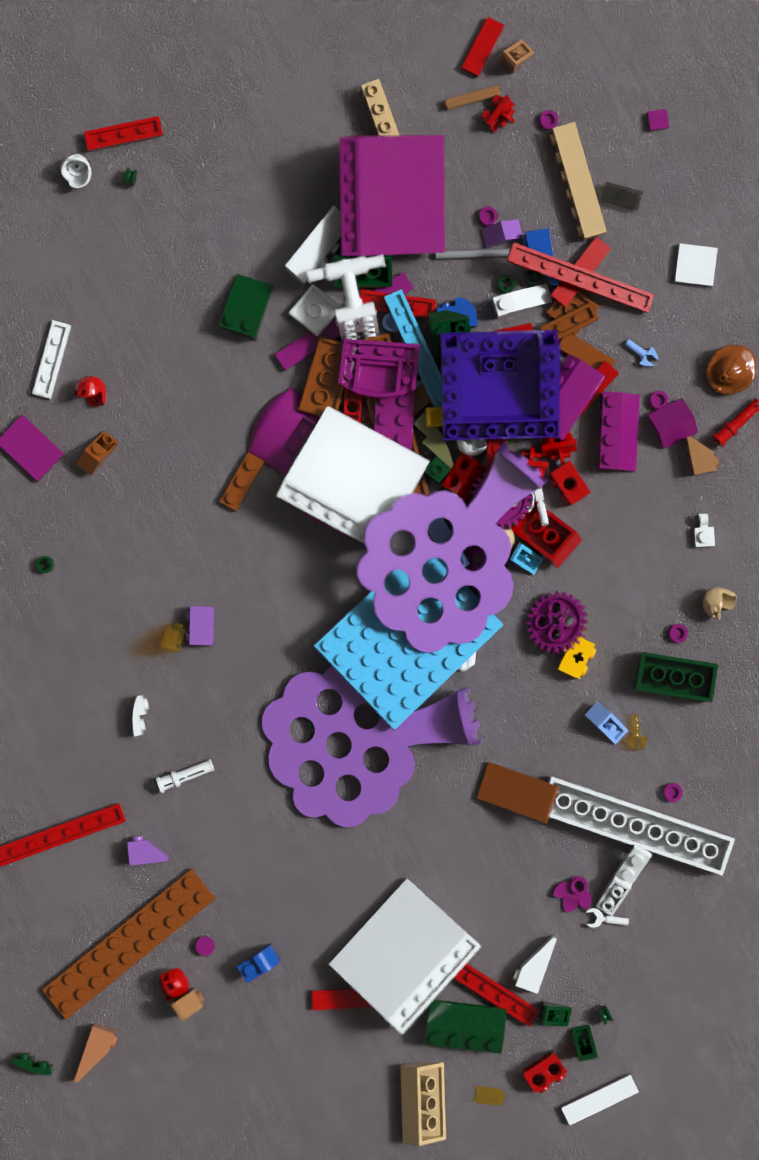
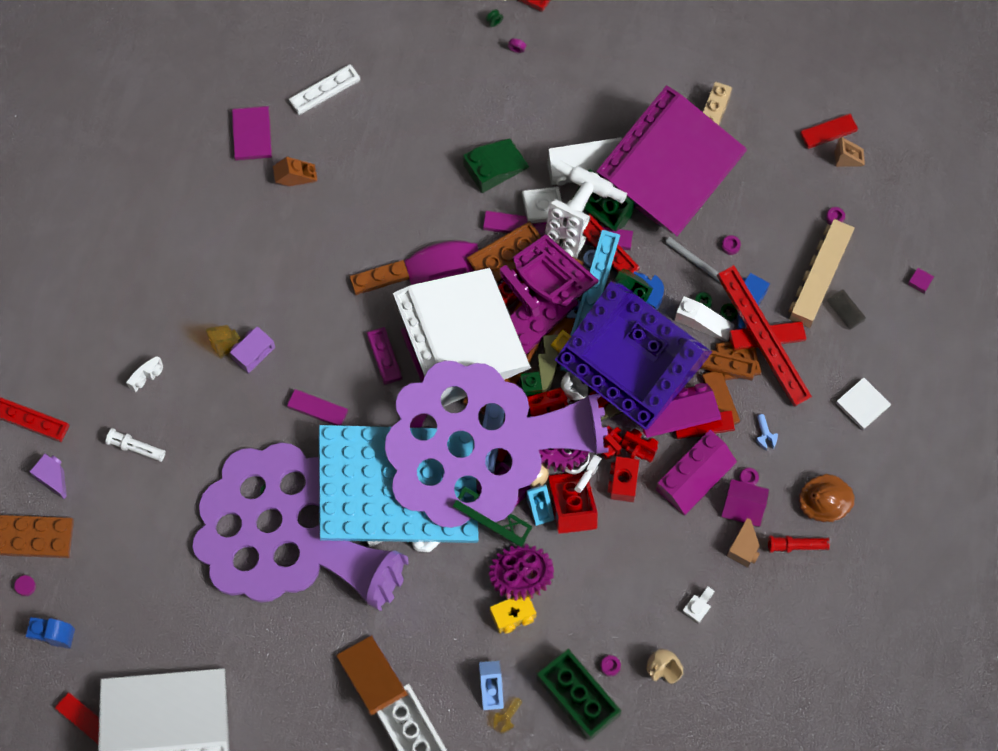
camera: 45 degrees right, 20 degrees down
(49, 560) = (187, 212): dark green bush -> none
(92, 389) = (334, 127): red helmet -> none
(170, 187) = (516, 45): none -> magenta tile
(292, 627) = (317, 408): none -> magenta tile
(303, 541) = (384, 355): none -> magenta tile
(367, 404) = (520, 290): none -> magenta plate
(472, 97) = (791, 157): medium nougat axle -> none
(501, 233) = (728, 257): medium lavender slope -> none
(502, 113) = (802, 183): red hips -> none
(512, 607) = (501, 530): none -> dark green fence

